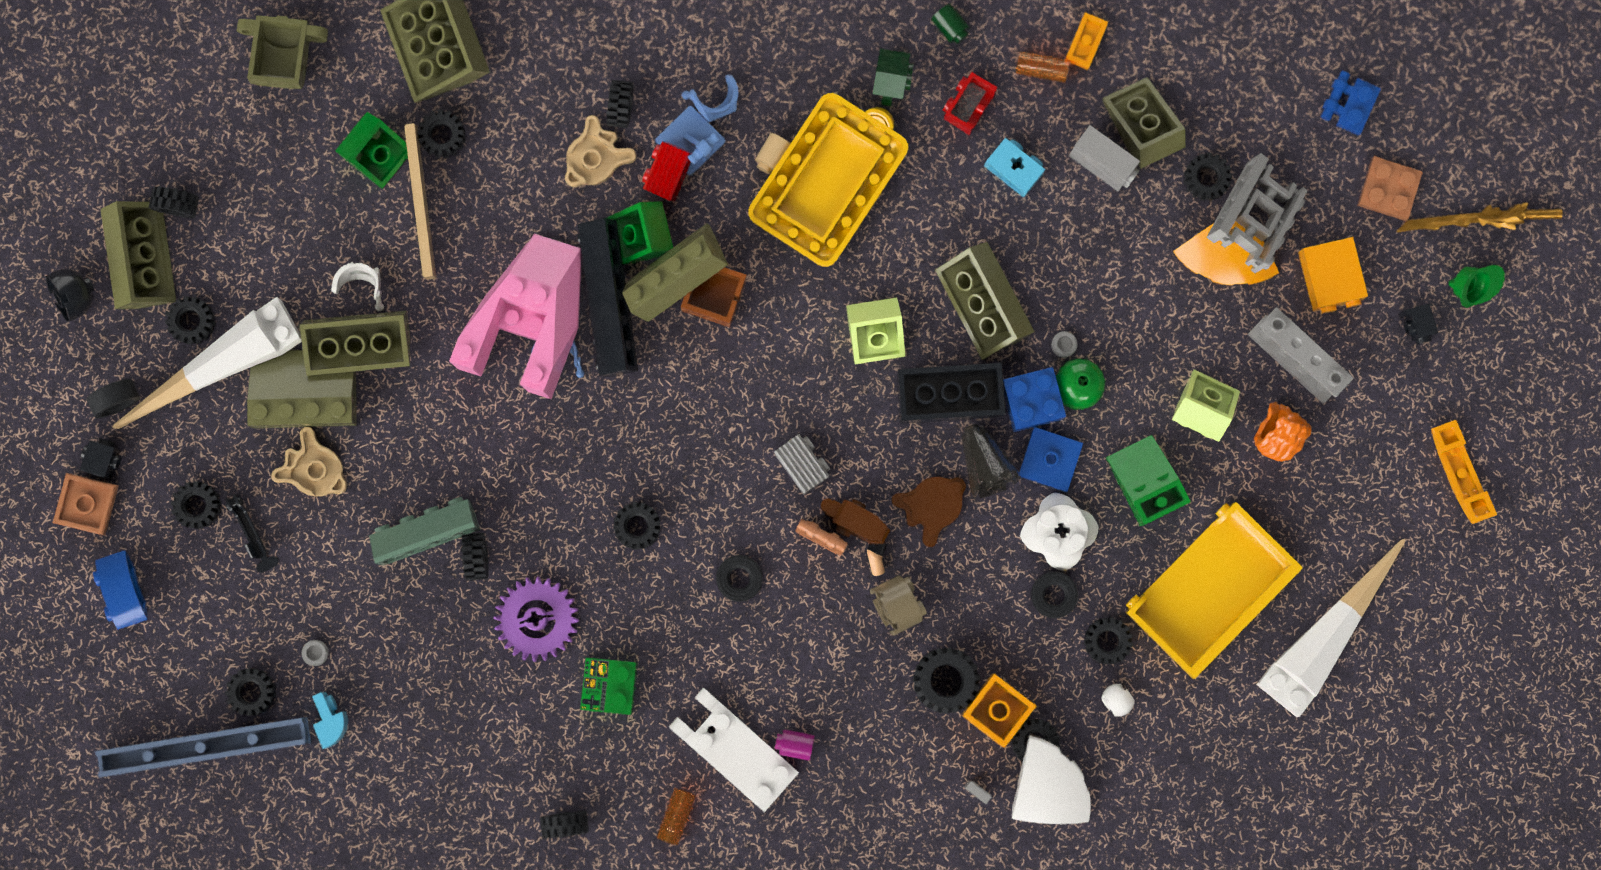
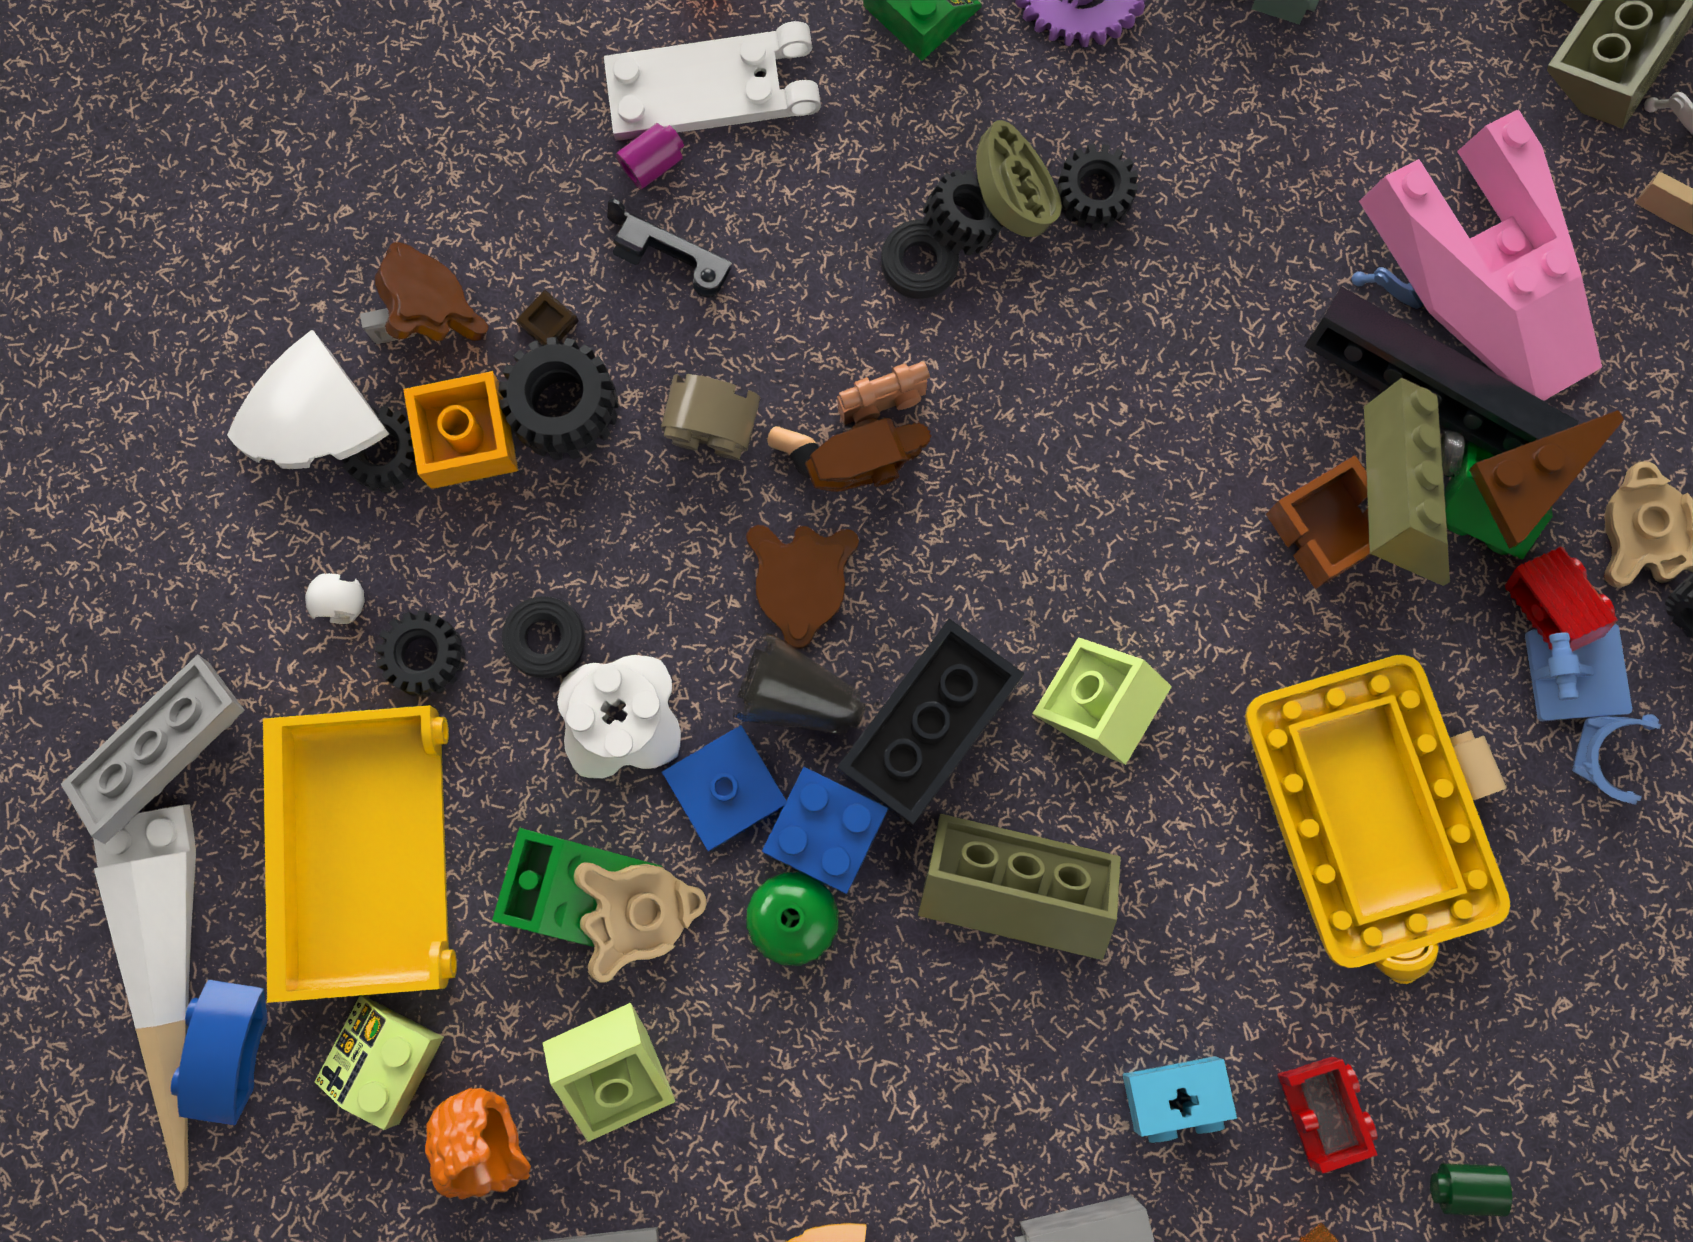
camera: 140 degrees right, 5 degrees down
(630, 223) = (1531, 478): none -> reddish brown wing
(636, 268) = (1452, 452): none -> clear tile
(656, 571) = (1016, 181): none -> olive piece
(690, 569) = (953, 226): none -> black tyre
(802, 464) = (1001, 453): light grey brick -> none
(841, 716) = (638, 234): none -> piece
(892, 75) = (1464, 1029): dark green brick -> none
(912, 723) = (546, 319): none -> dark brown tile
(952, 785) = (424, 297): none -> reddish brown tile
(1064, 344) = (865, 946): light grey tile -> none
(1134, 448) = (635, 915): none -> tan tile
(1247, 717) = (151, 749): none -> light grey plate
(1286, 504) = (377, 1063): none -> yellowish green slope
(1338, 571) = (220, 1052): none -> blue brick

